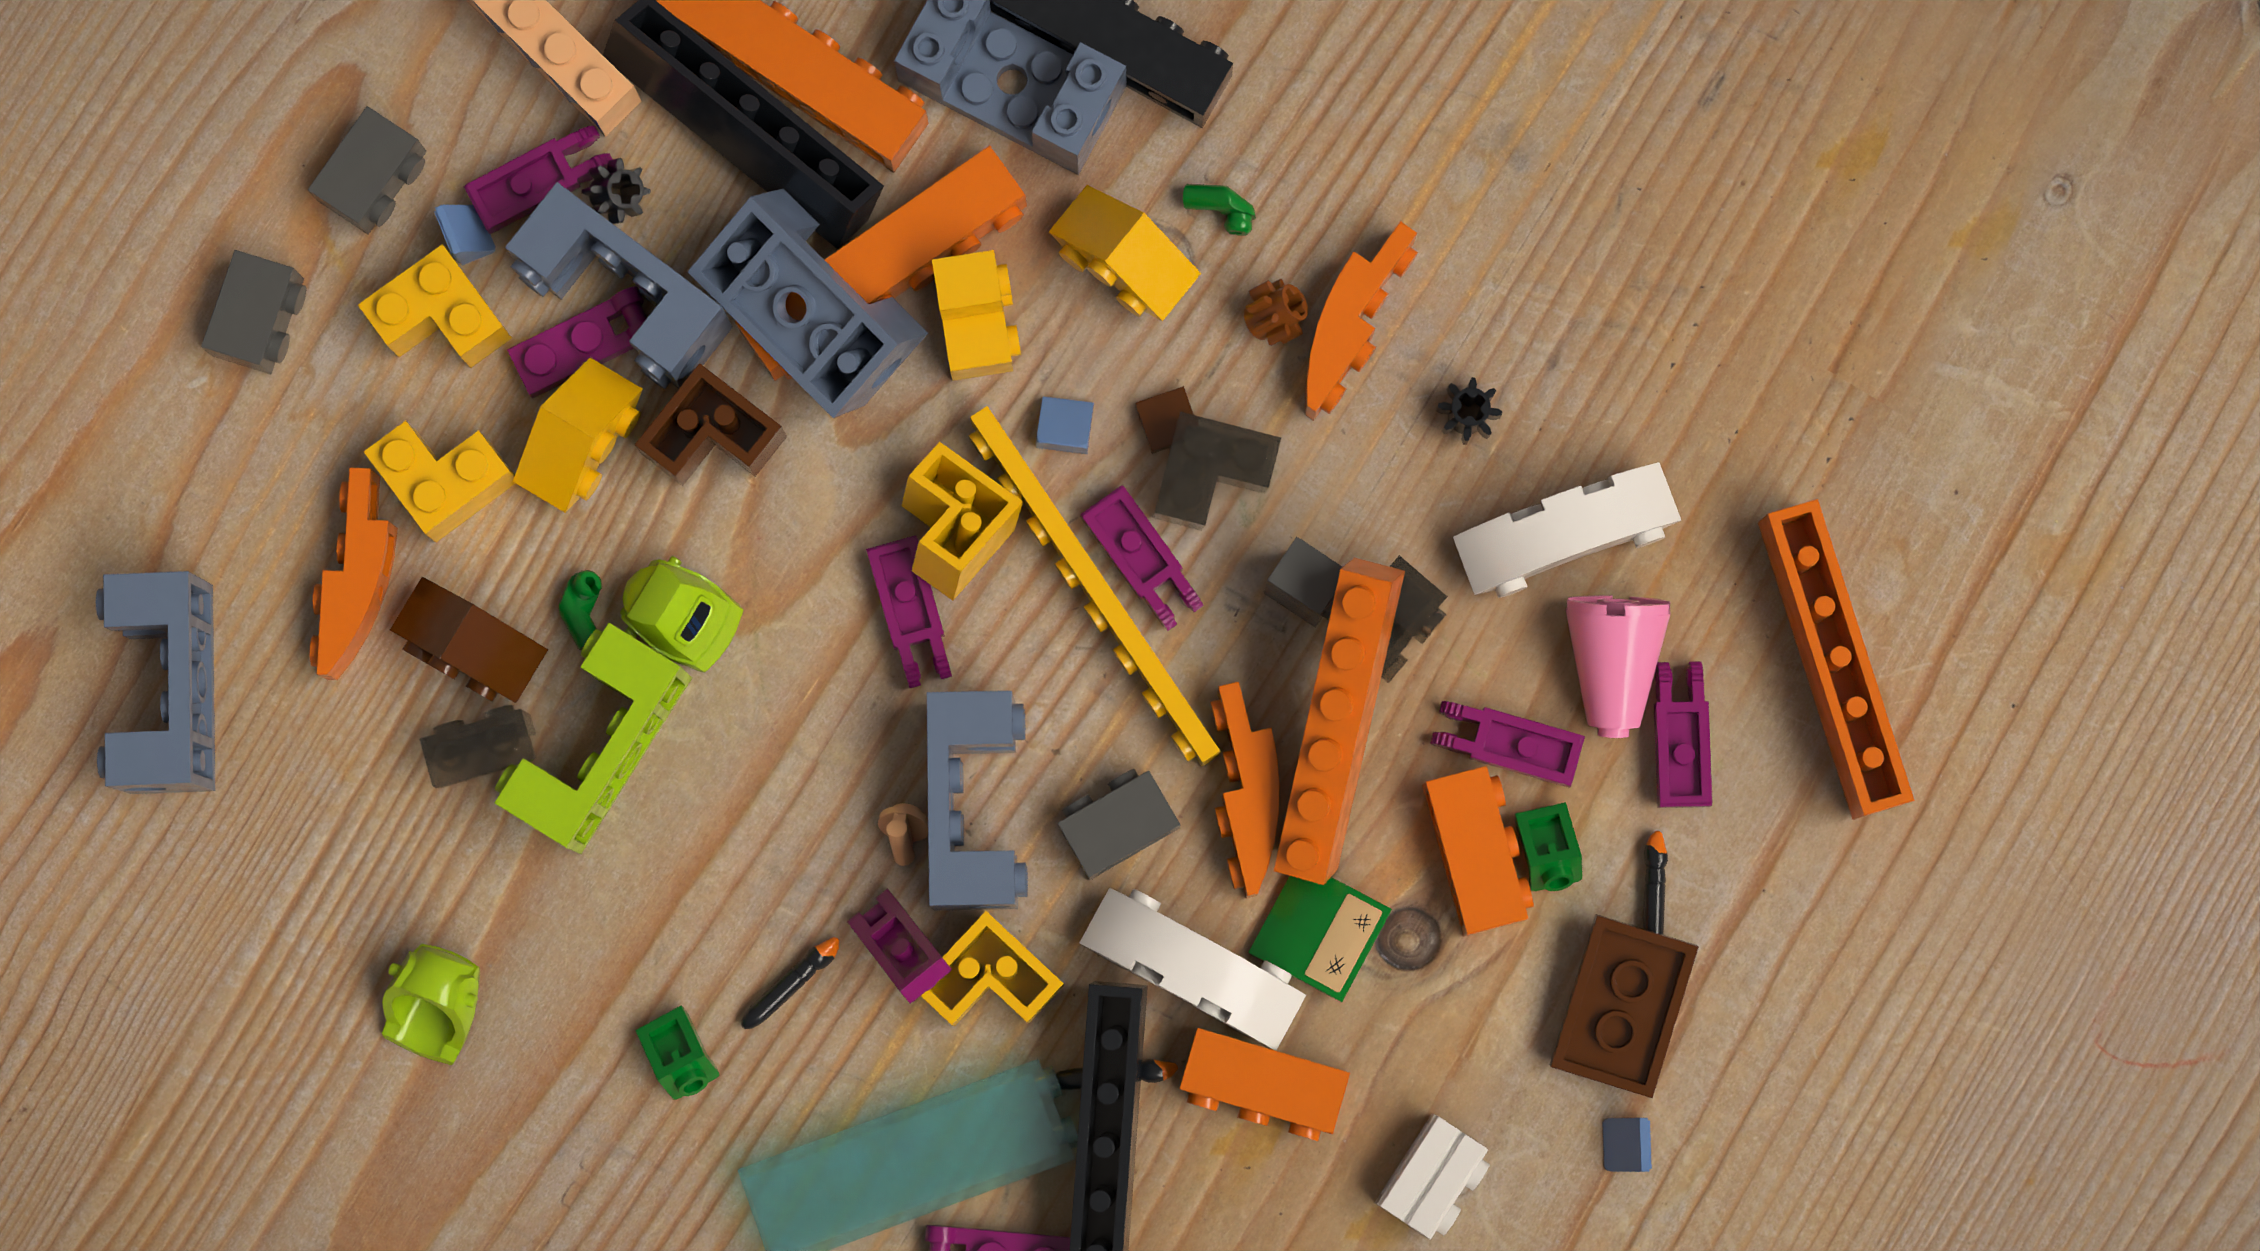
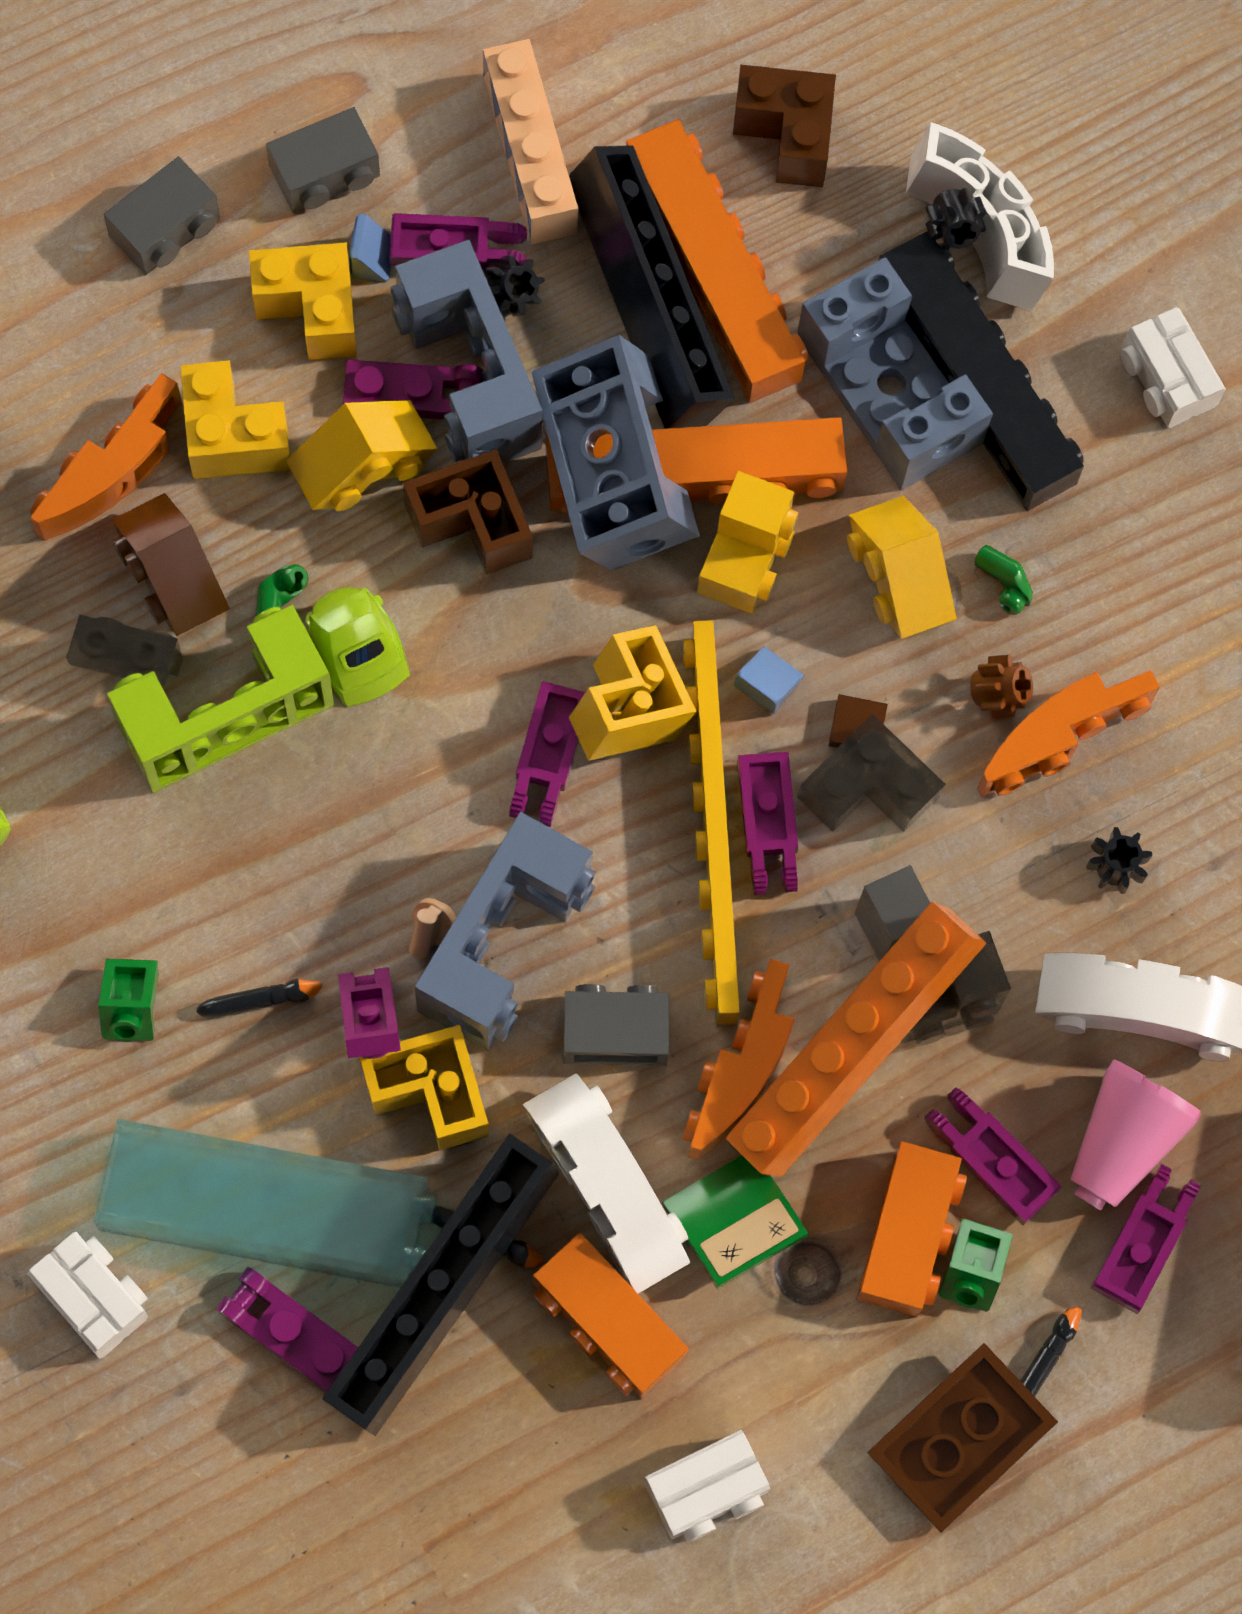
camera: 25 degrees right, 10 degrees down
(1627, 1144) = (895, 1561): medium blue slope -> none

